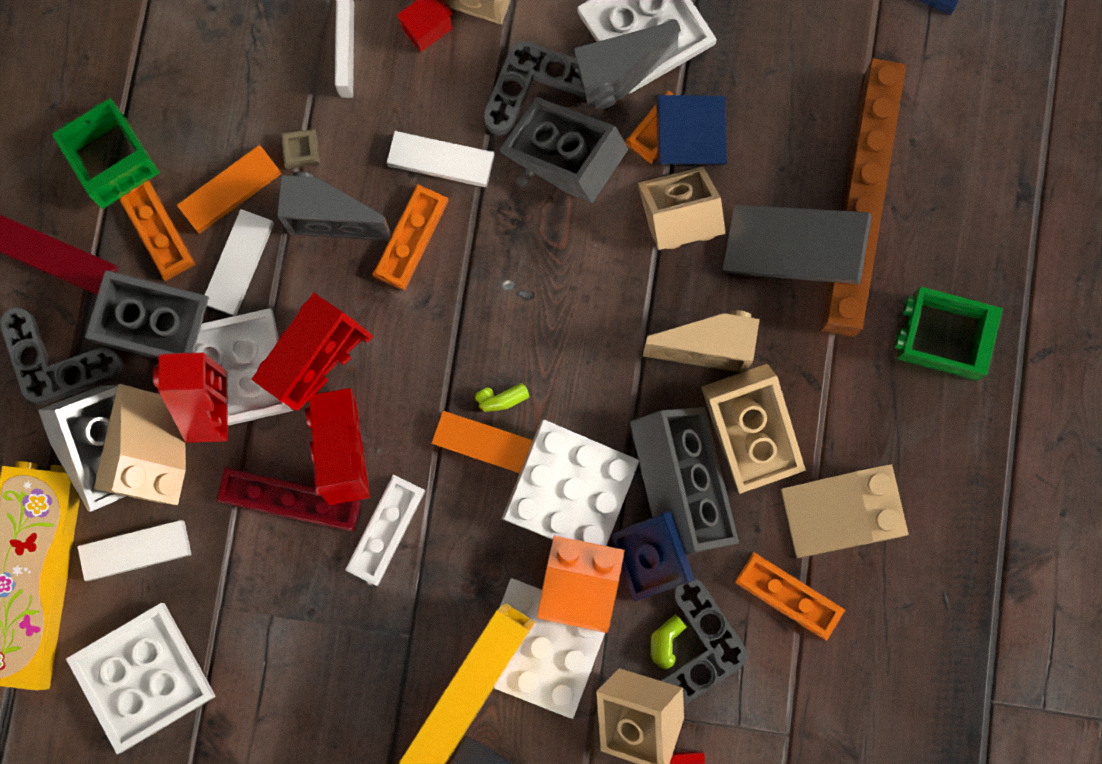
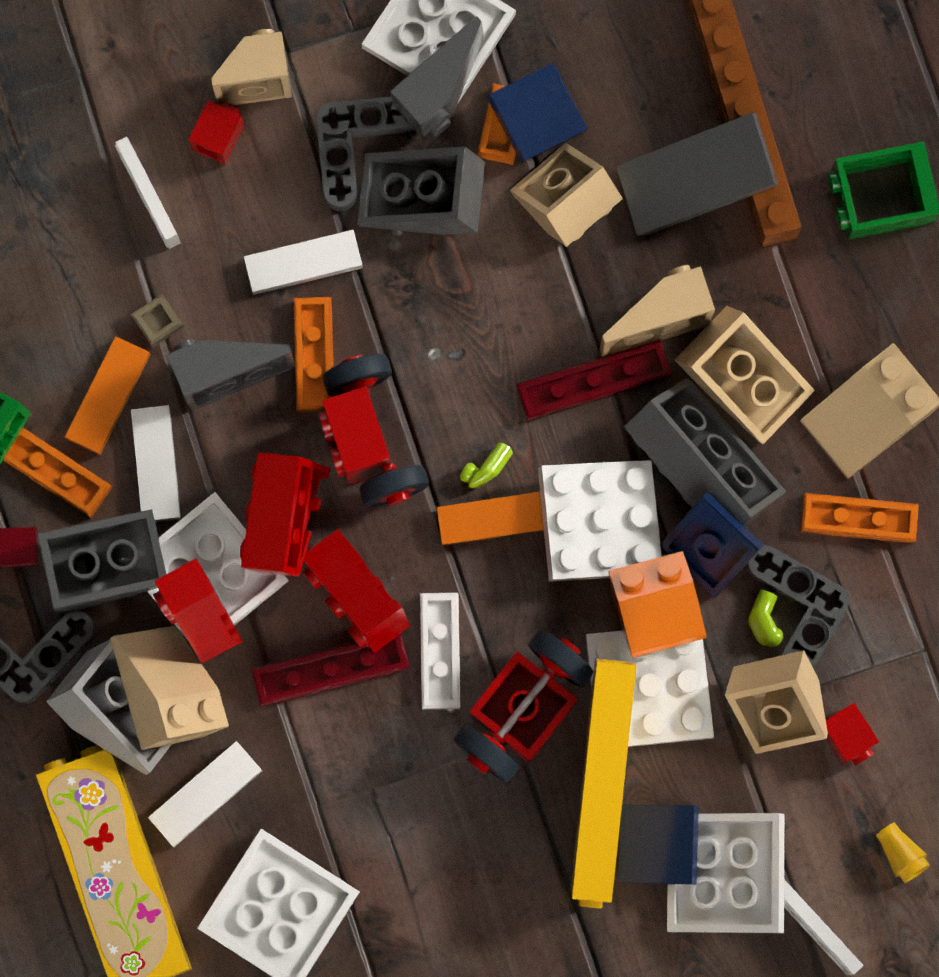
camera: 30 degrees left, 0 degrees up
(407, 320) = (358, 437): none -> brick
(423, 613) = (523, 706): none -> brick
(626, 371) = (593, 380): none -> dark red tile

